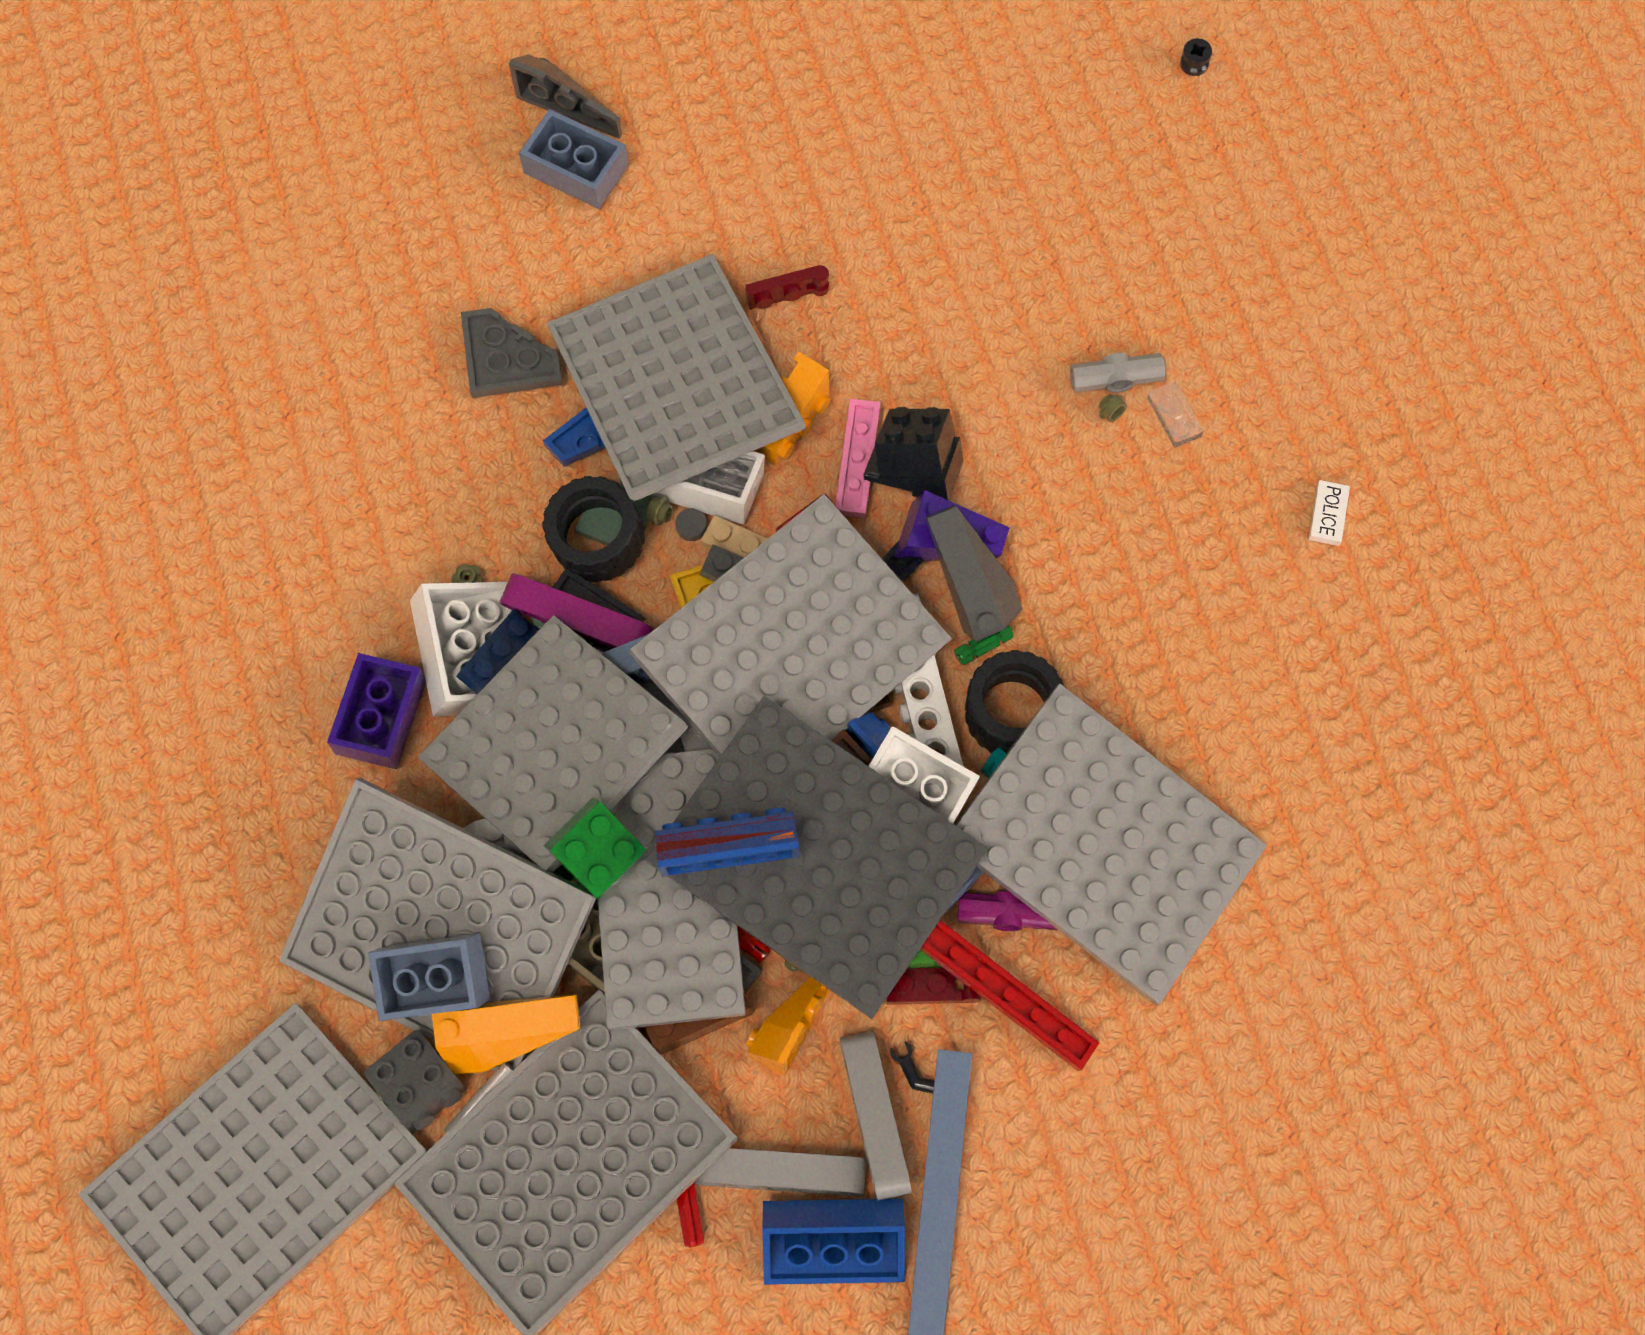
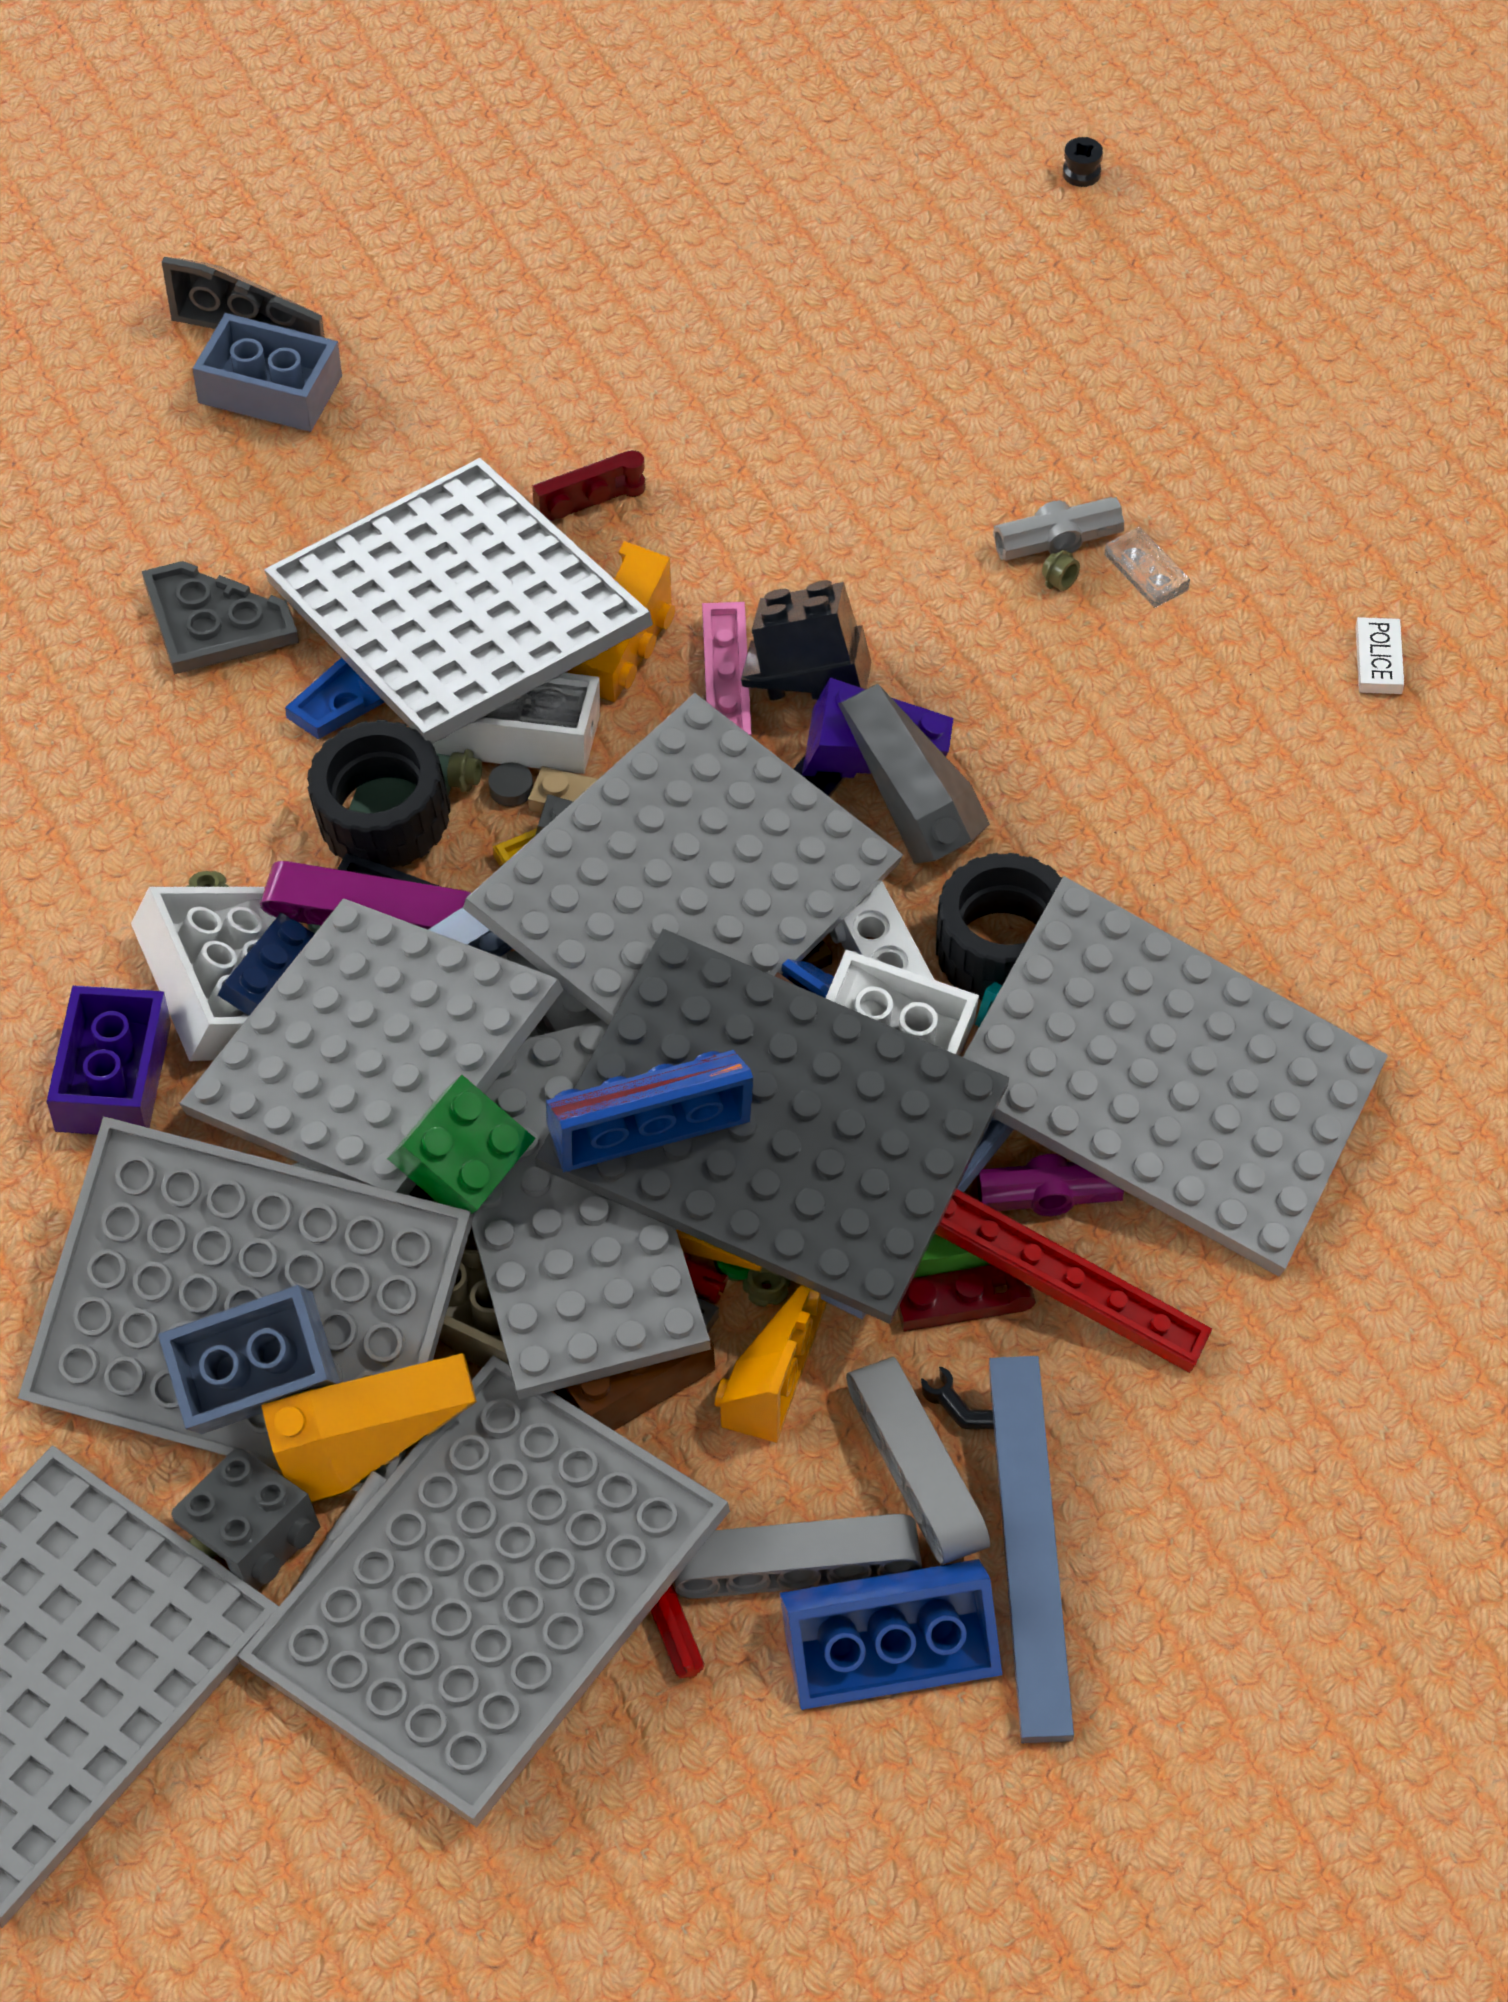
camera: 10 degrees left, 15 degrees down
(965, 654) = (923, 885): green axle -> none

